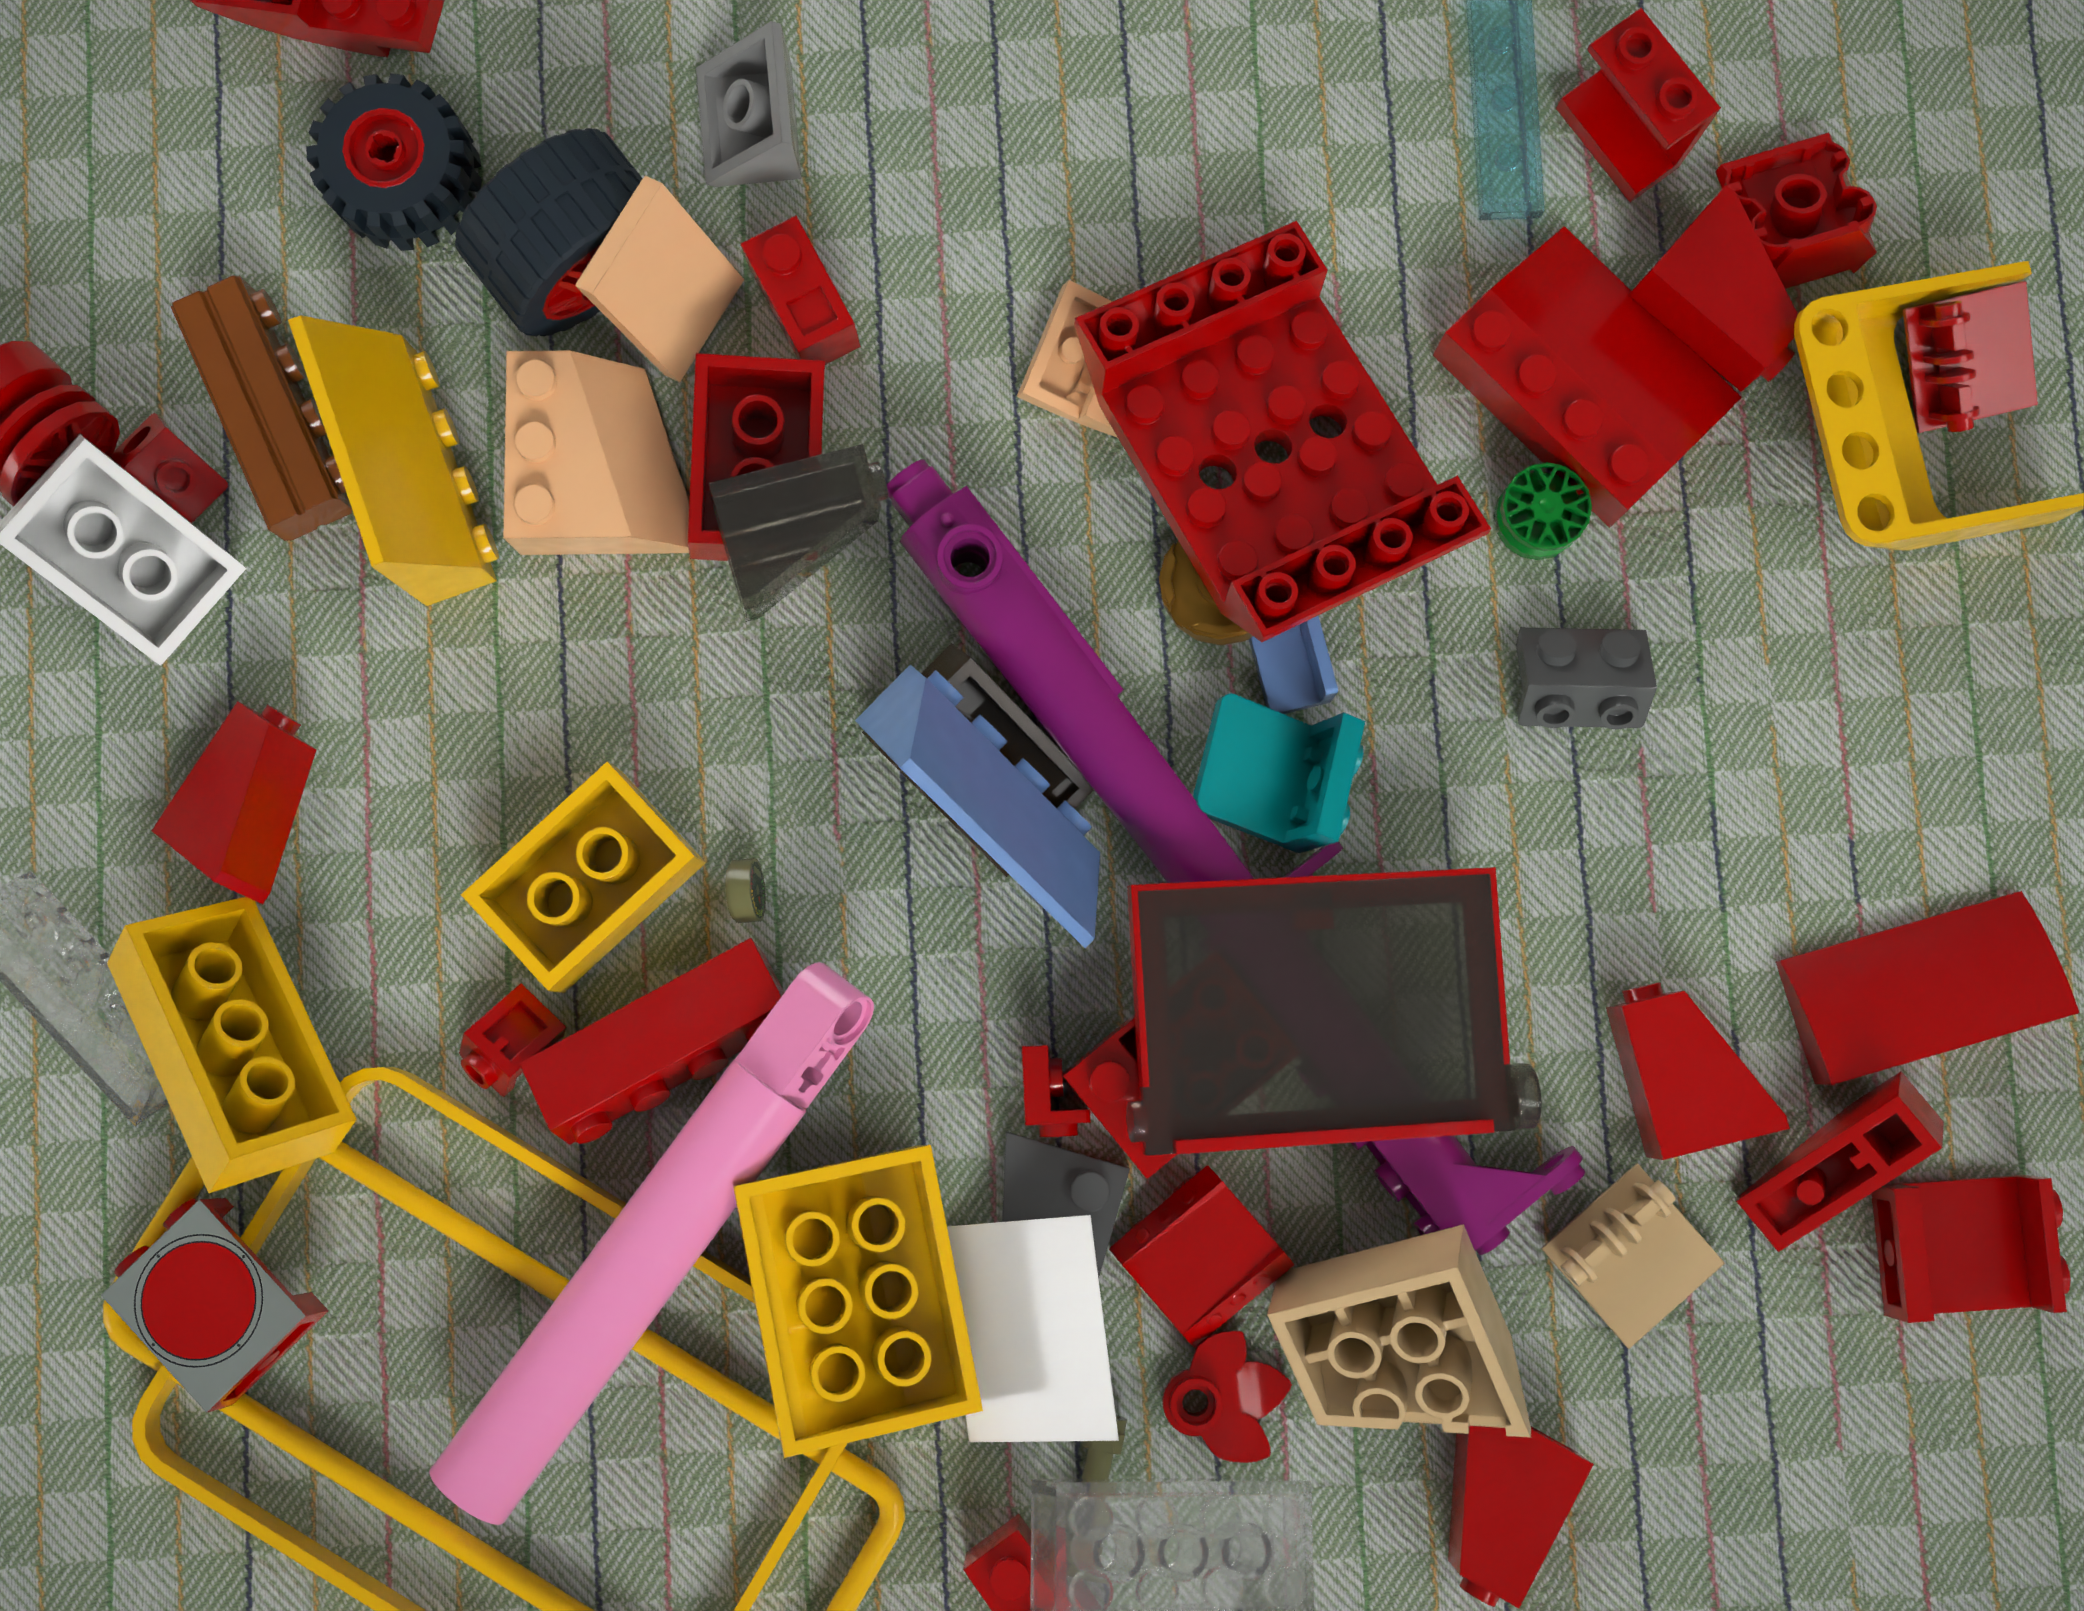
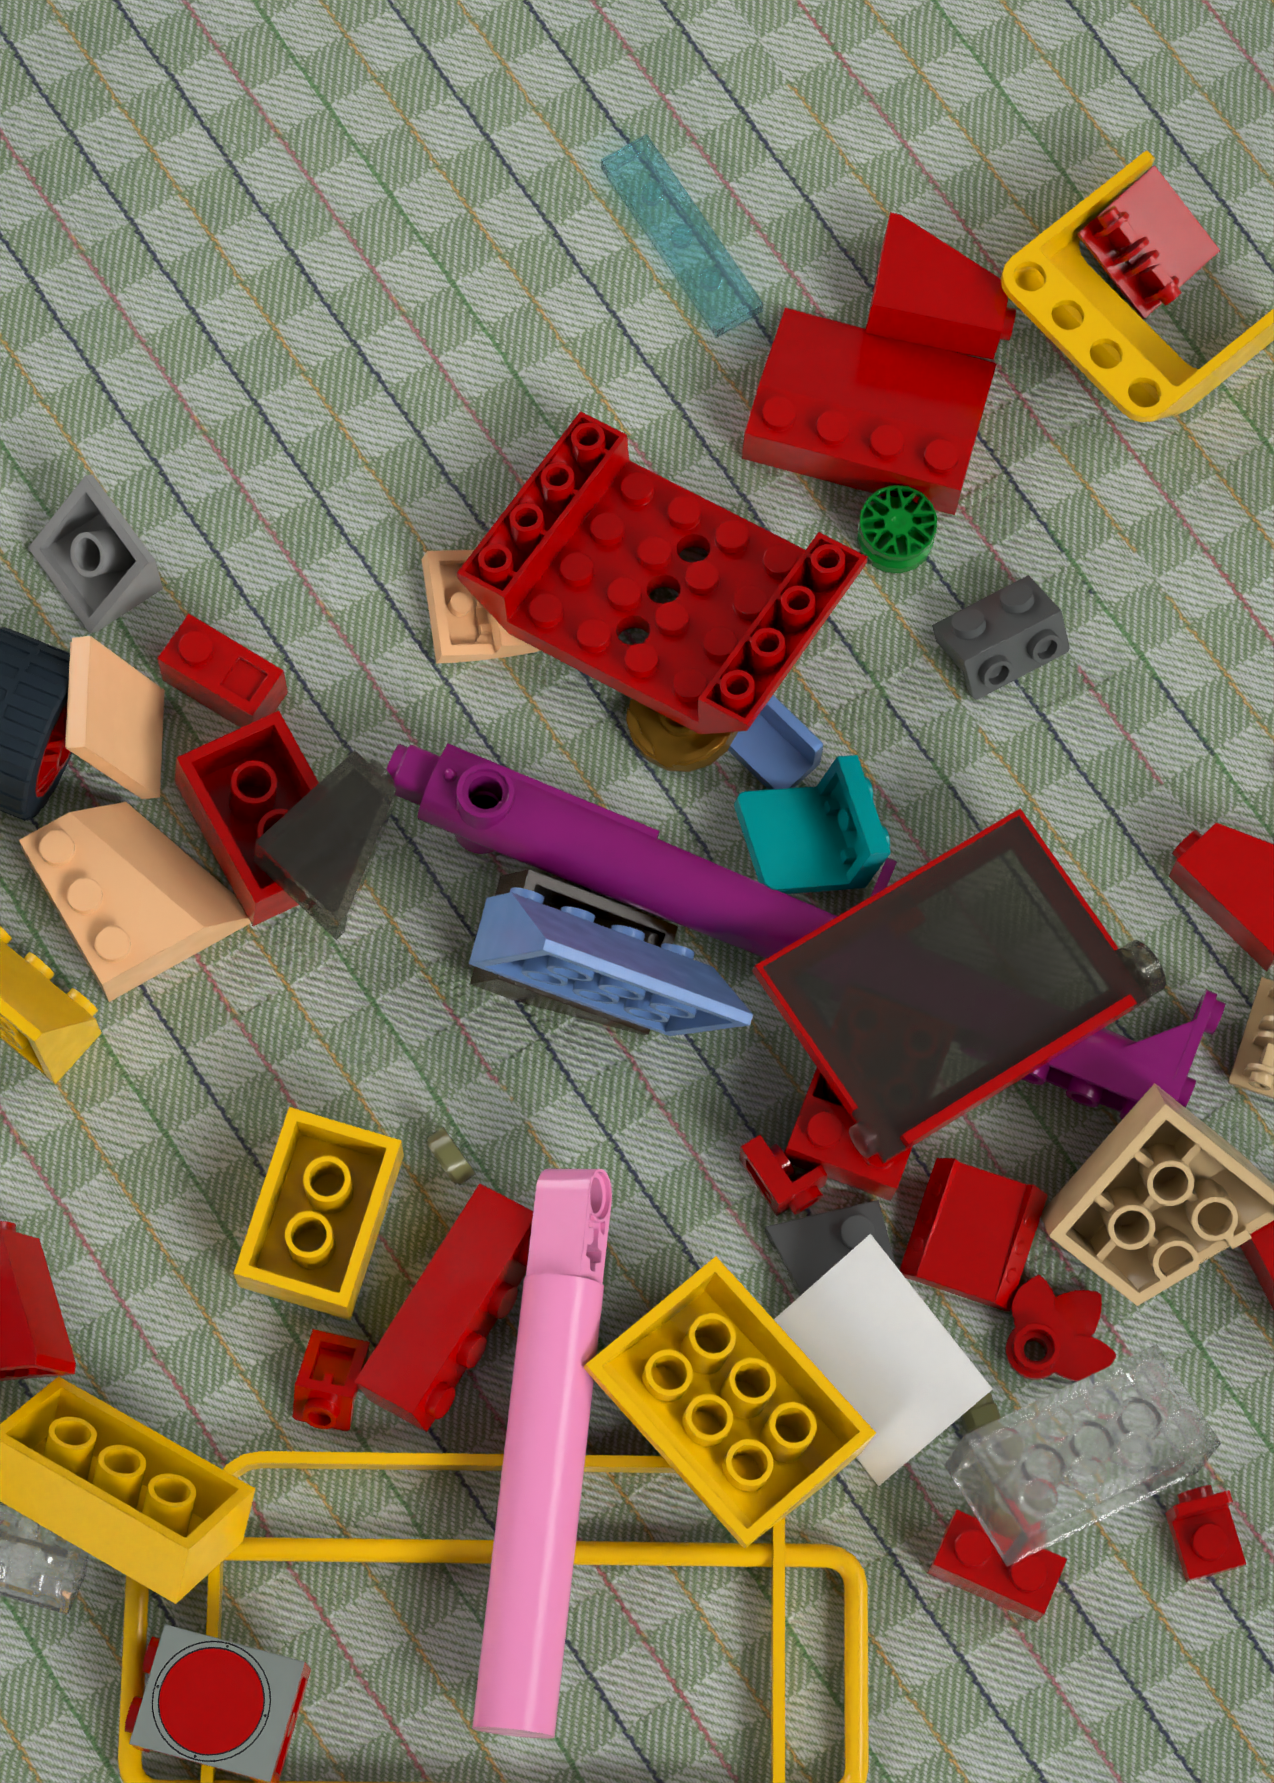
camera: 35 degrees left, 10 degrees down
(1640, 107) = (789, 191): red panel -> none
(1804, 208) = (959, 198): red slope -> none

